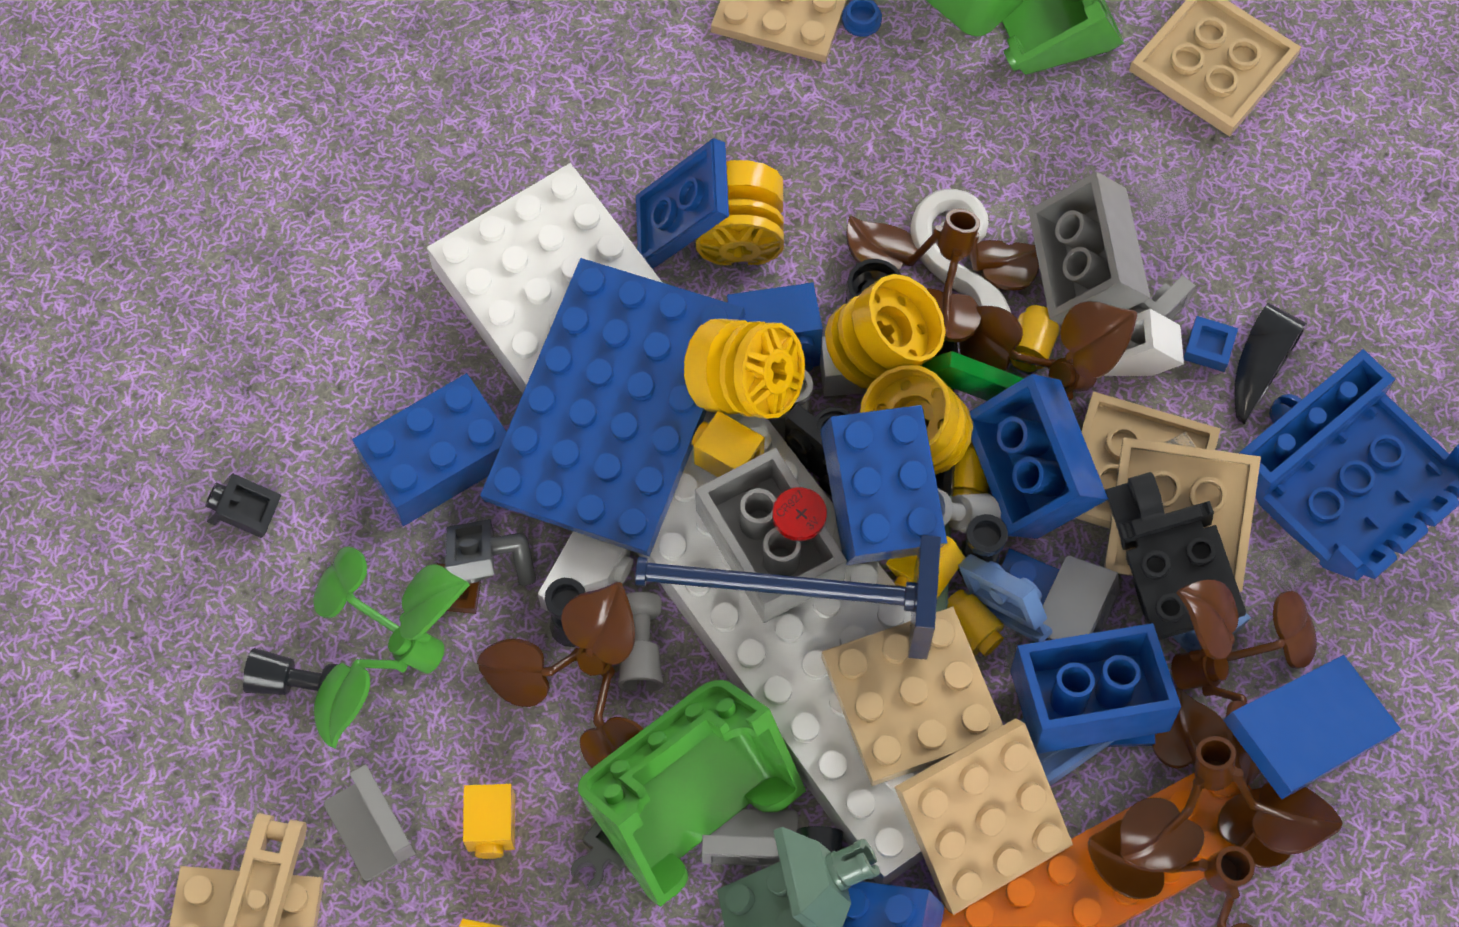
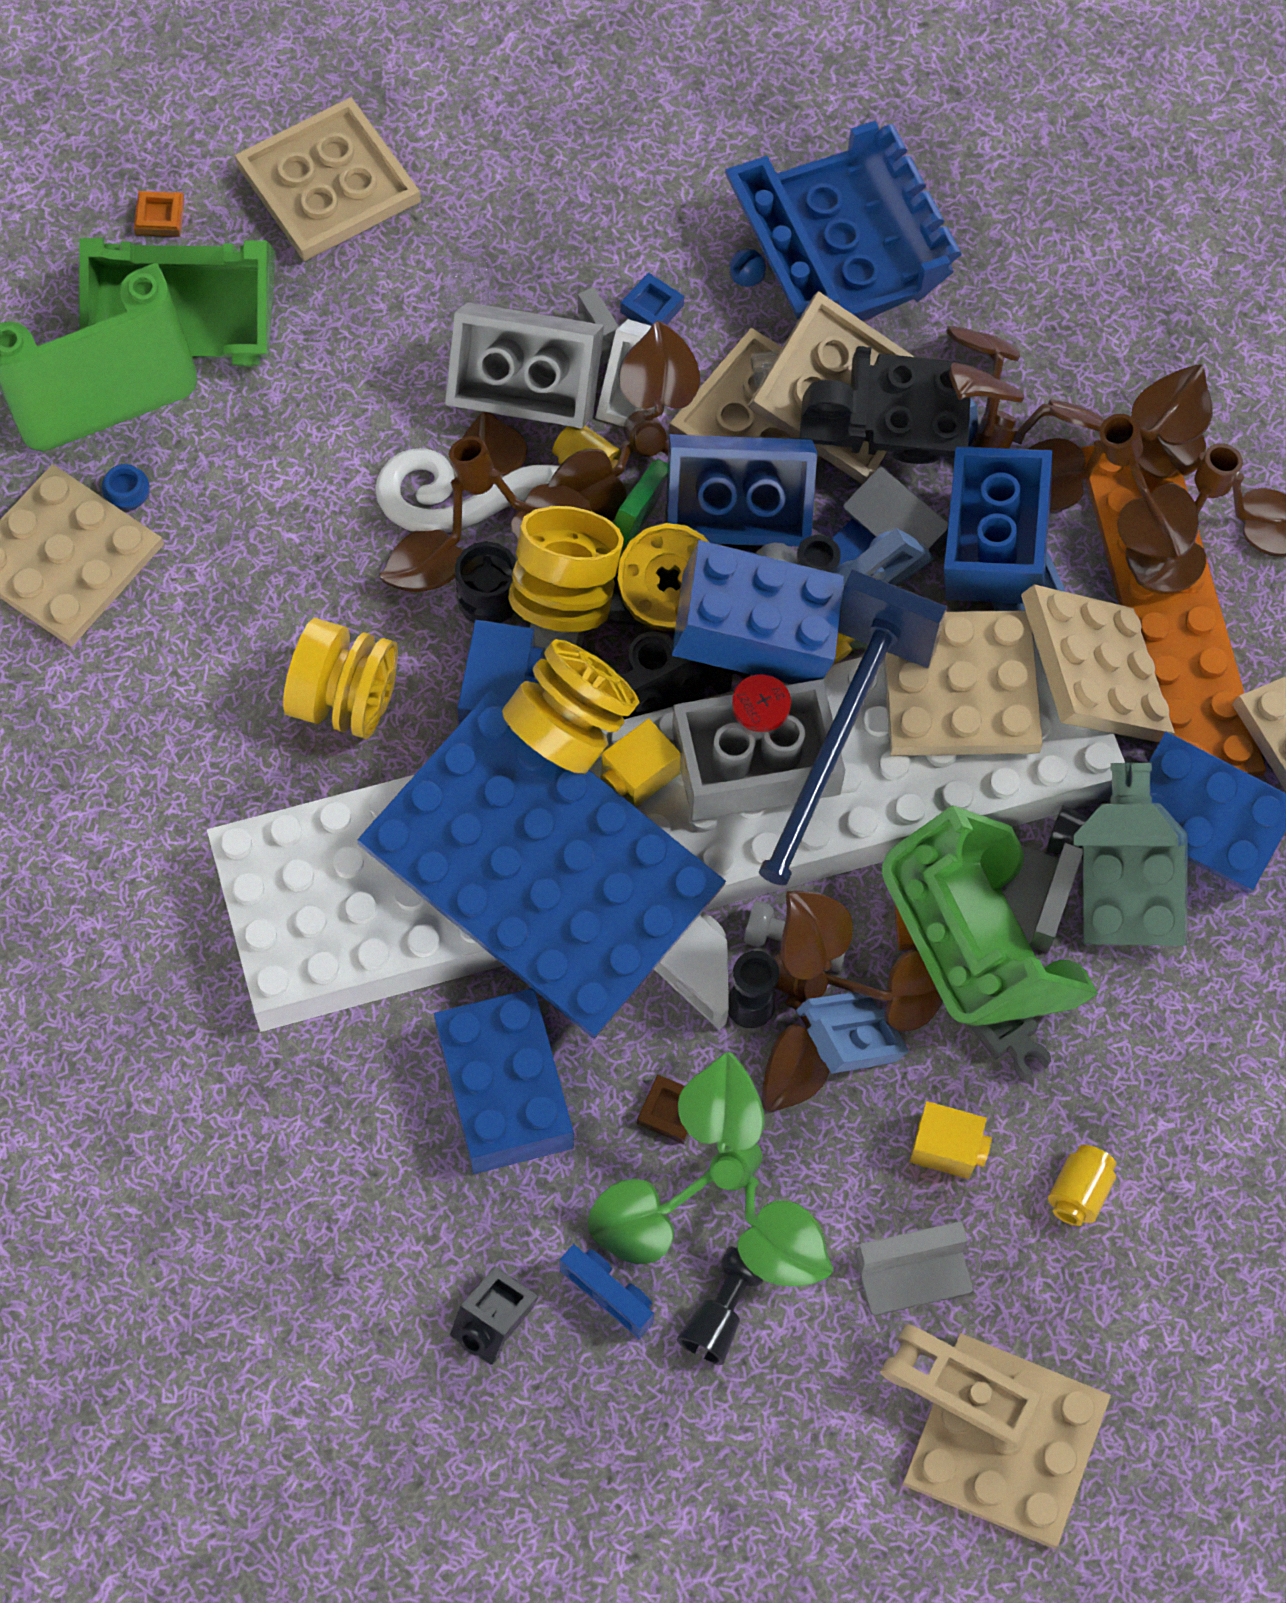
camera: 75 degrees left, 0 degrees up
(273, 598) = (592, 1276): none -> blue plate
(473, 547) = (650, 1068): dark grey plate -> none
(557, 705) = (851, 1032): none -> medium blue plate
(683, 203) = (311, 726): blue tile -> none
(1263, 356) = (679, 256): black piece -> none
(1311, 726) = (1088, 361): blue tile -> none

